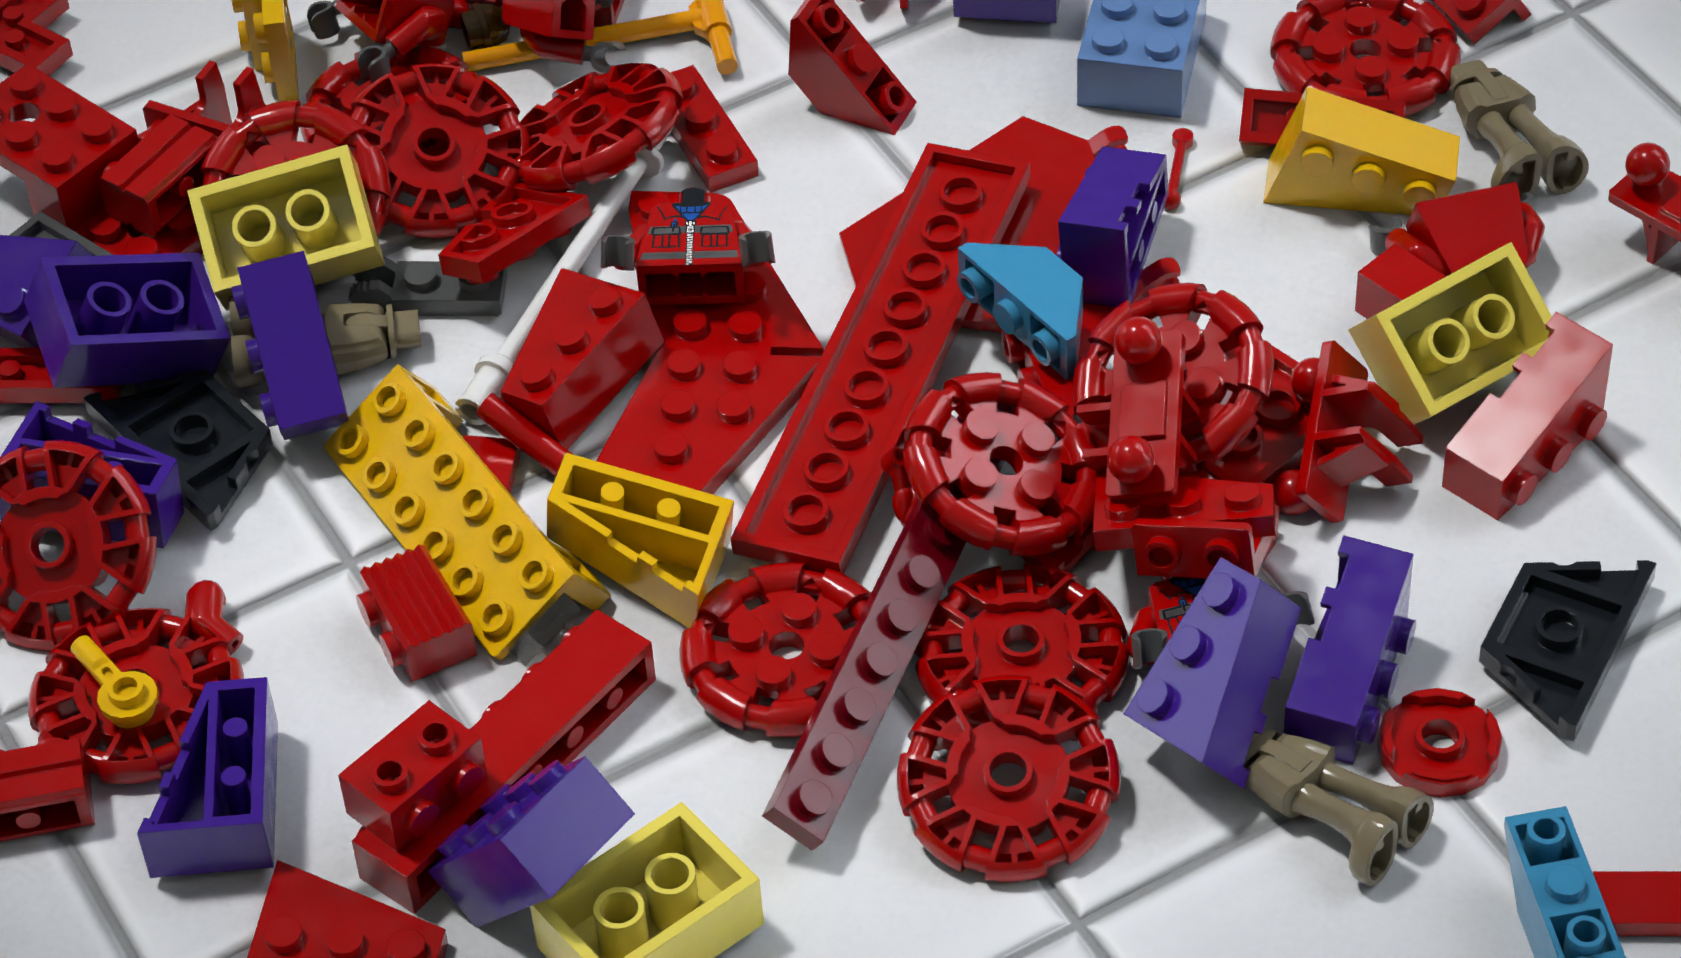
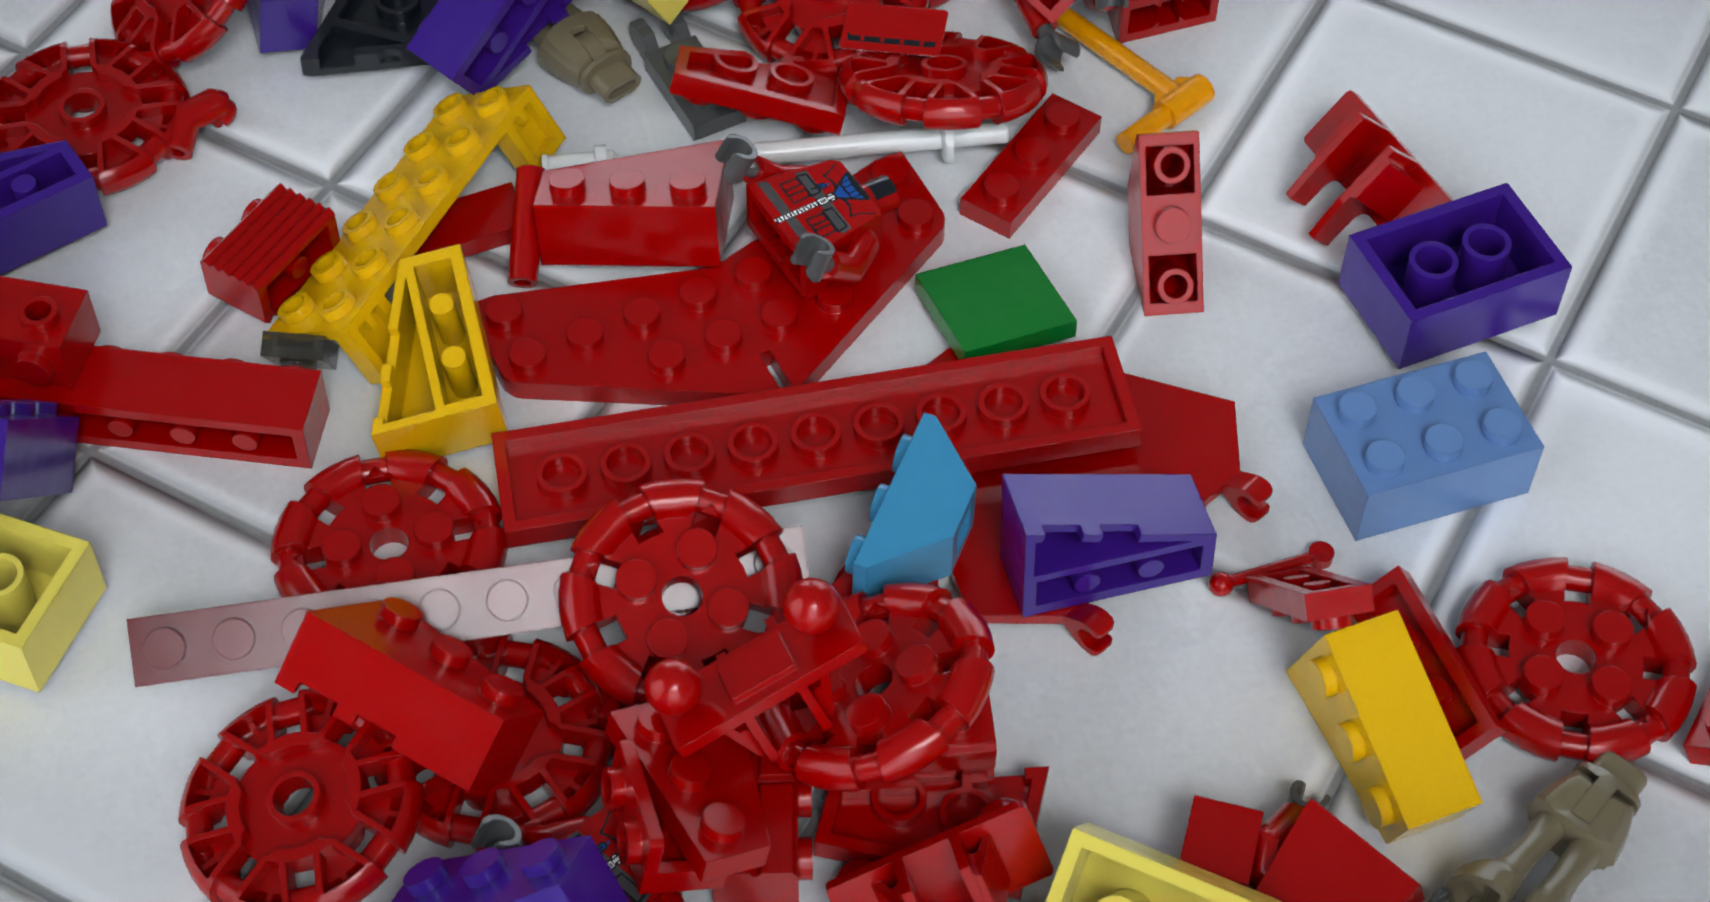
camera: 55 degrees right, 5 degrees up
(124, 697) = (51, 105): yellow plate -> none
(524, 128) = (893, 29): none -> red sticker
(830, 203) = (995, 304): none -> green tile
(988, 637) = (415, 685): none -> red wedge
(1245, 136) = (1311, 596): none -> red plate

